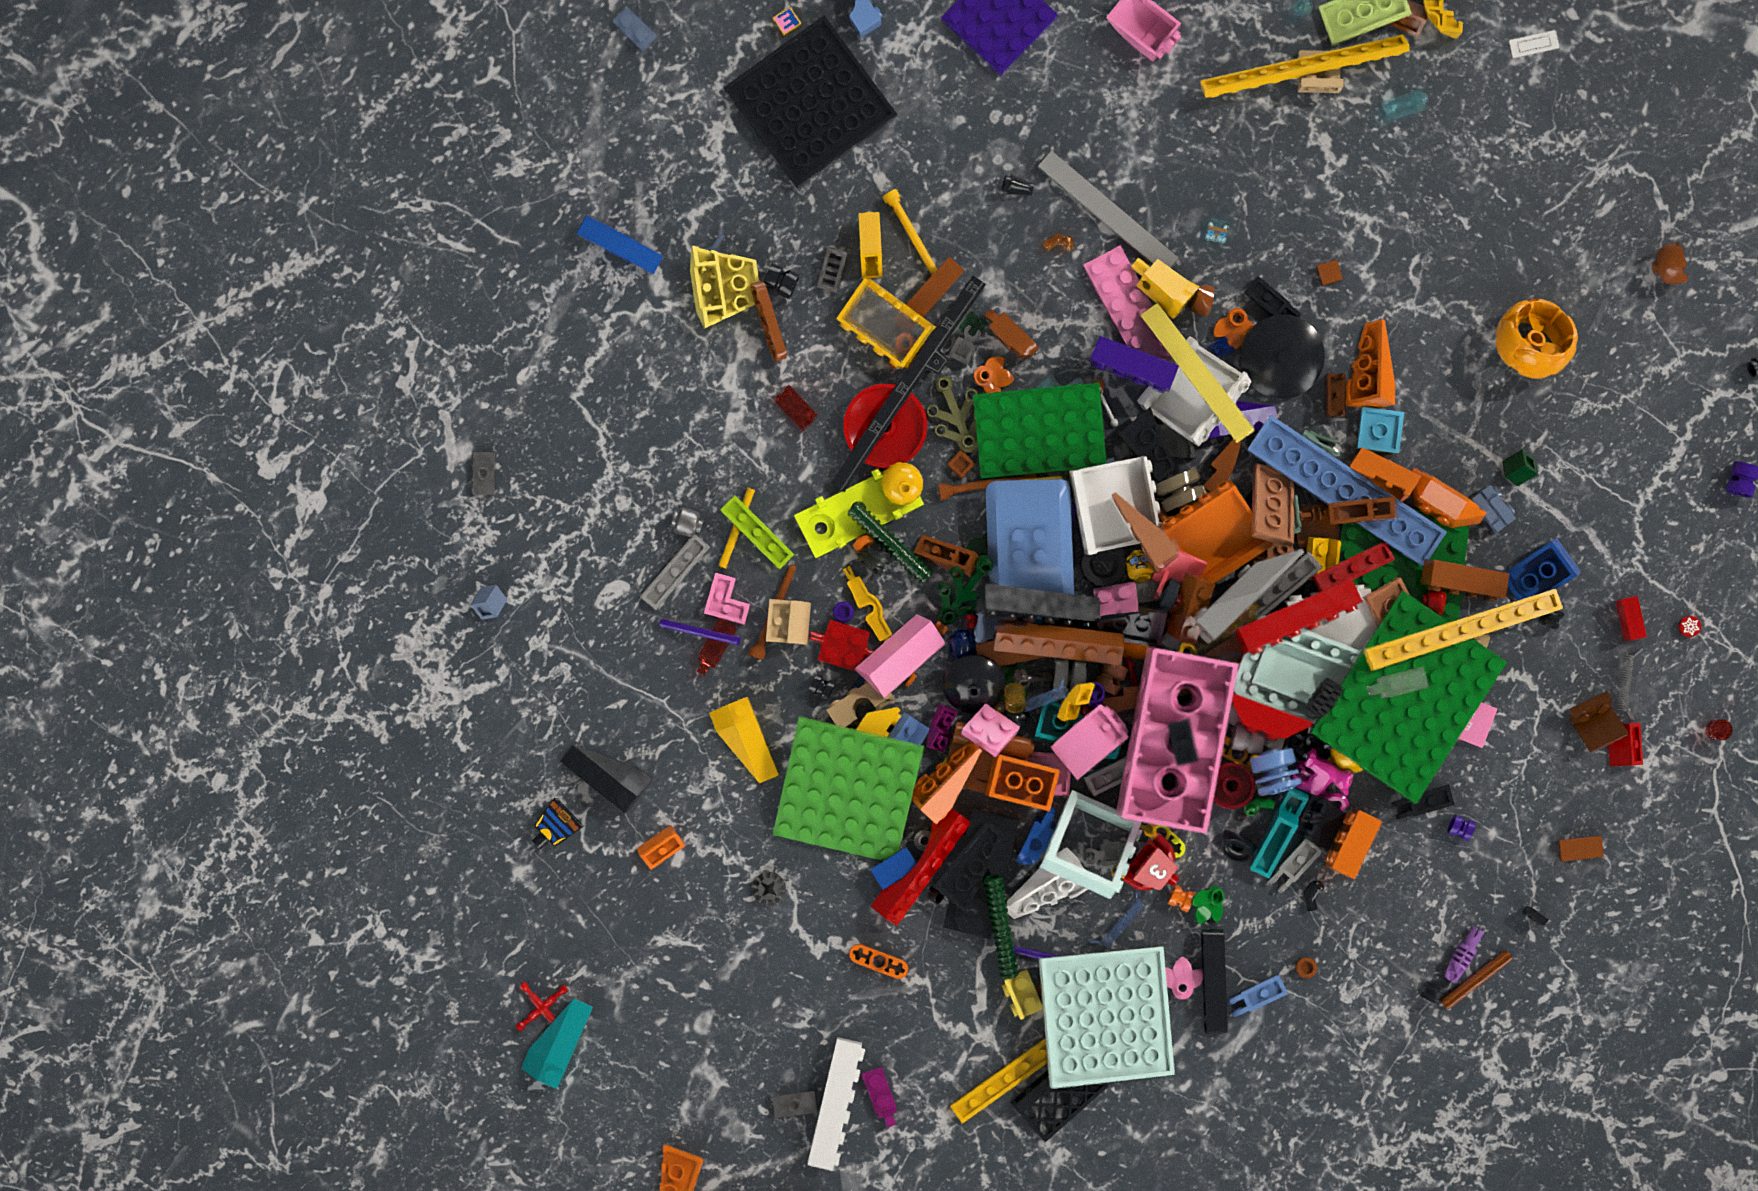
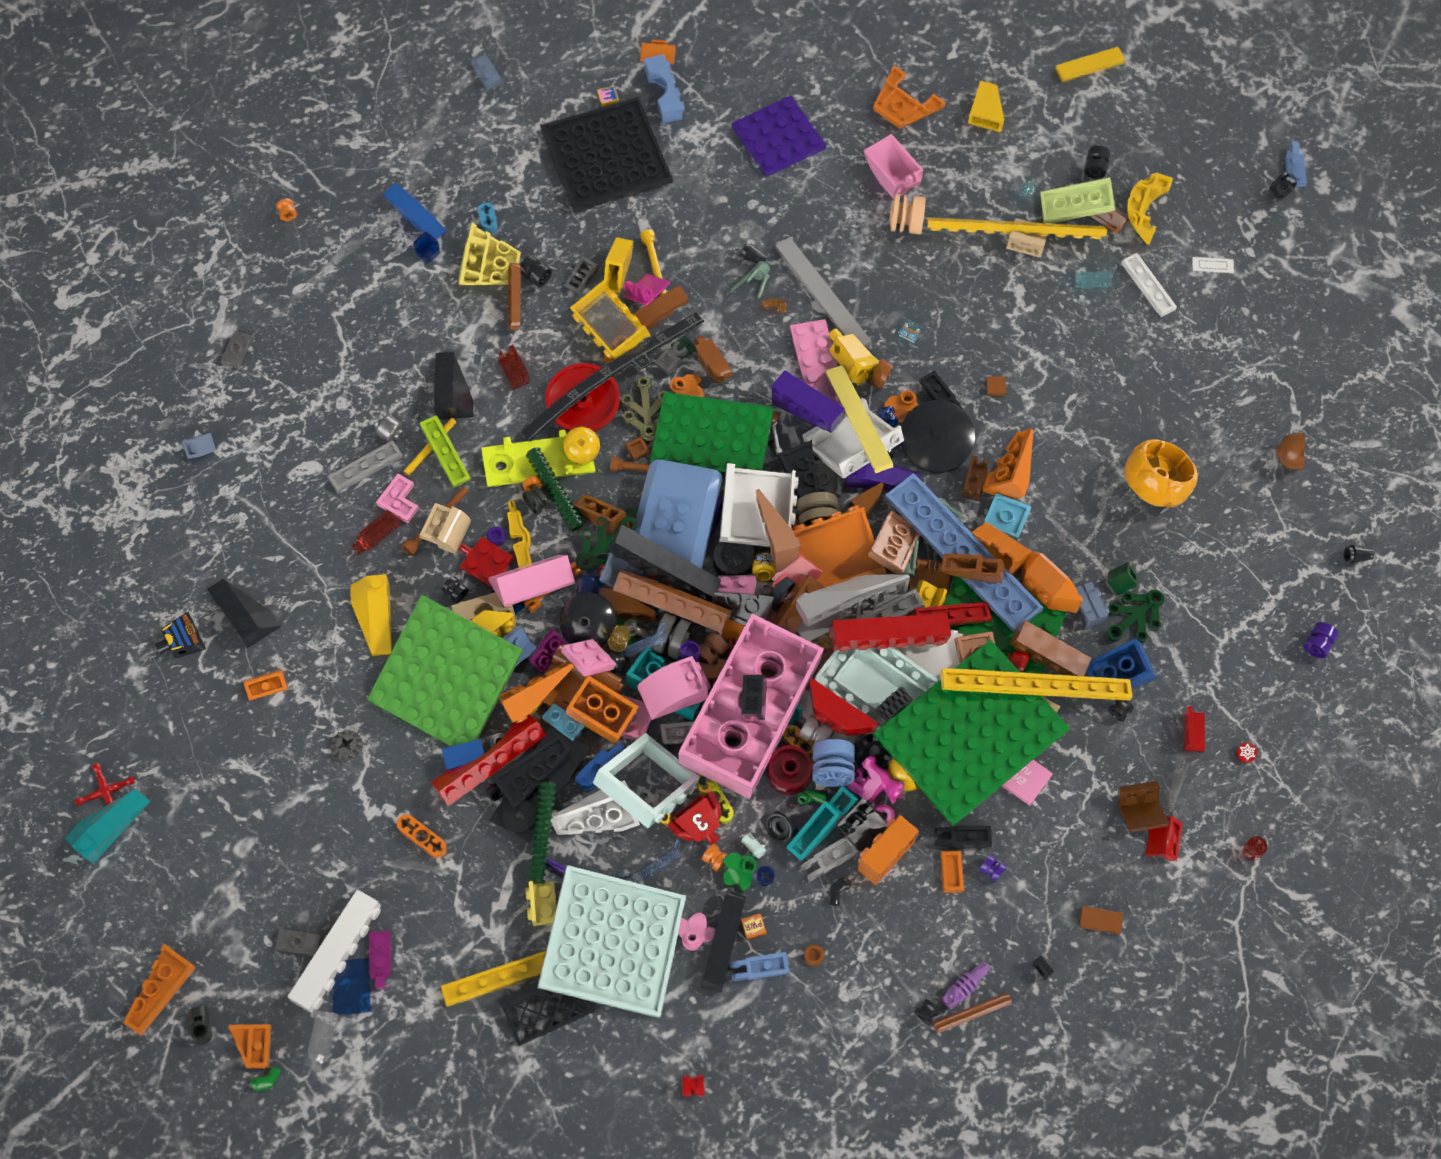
camera: 10 degrees right, 20 degrees down
(473, 283) = (286, 209): none -> orange wheel
(649, 286) = (426, 247): none -> clear blue panel
(700, 228) = (488, 217): none -> dark azure beam
(700, 632) = (366, 515): dark purple bar -> none
(737, 454) = (451, 391): none -> black wedge
(864, 1132) = (352, 988): none -> clear blue piece
(911, 267) = (645, 289): none -> dark pink hinge
(976, 800) = (565, 724): none -> medium azure hinge
(1030, 206) = (758, 272): none -> sand green plant
(1077, 696) = (667, 651): yellow slope -> none
(1178, 86) = (907, 214): none -> light nougat wheel
(1215, 874) = (753, 845): none -> light aqua pin
(1229, 1131) = (693, 1085): none -> red wheel
(1236, 907) = (765, 869): none -> clear blue bush
(1238, 956) = (753, 926): none -> tile
(1400, 683) = (966, 712): clear hinge -> none
(1420, 841) = (952, 871): none -> orange tile
(1468, 93) = (1148, 285): none -> white tile
(1544, 503) = (1137, 613): none -> dark green plant

